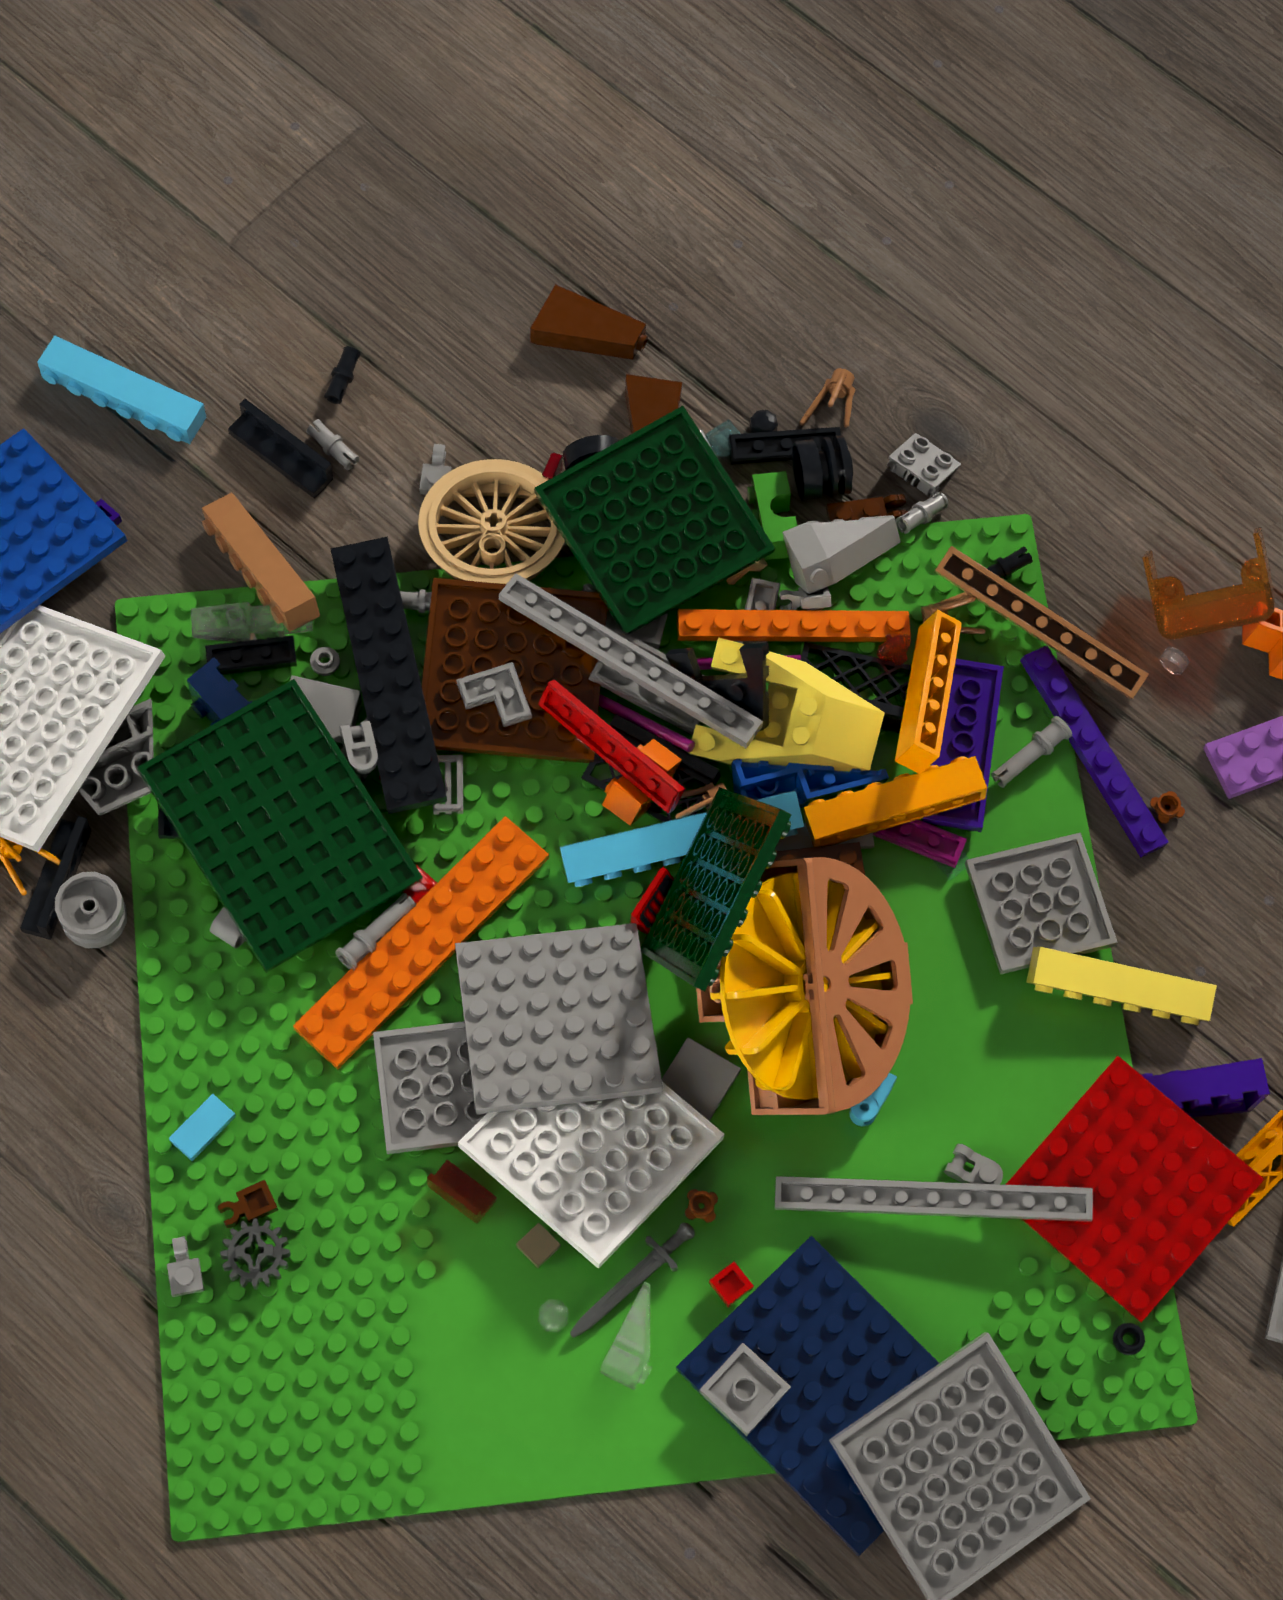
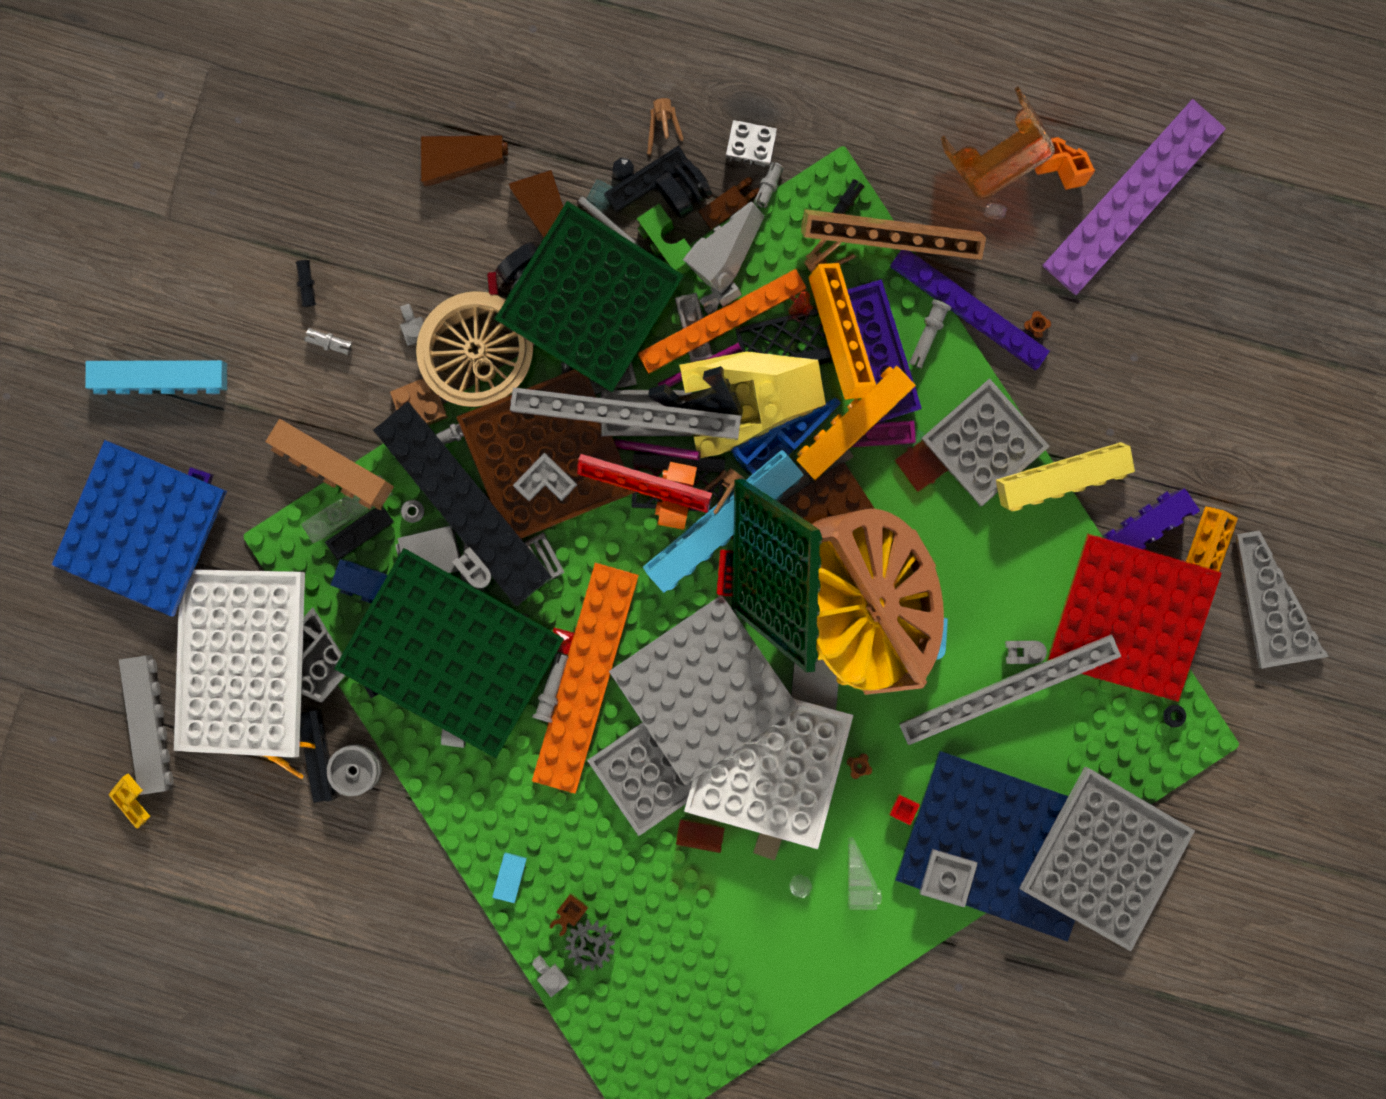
camera: 20 degrees left, 20 degrees up
(282, 450) = (294, 365): black fence -> none
(407, 553) = (423, 399): none -> medium nougat plate
(635, 1277) = (840, 834): dark grey sword -> none
(950, 895) = (920, 466): none -> clear red piece

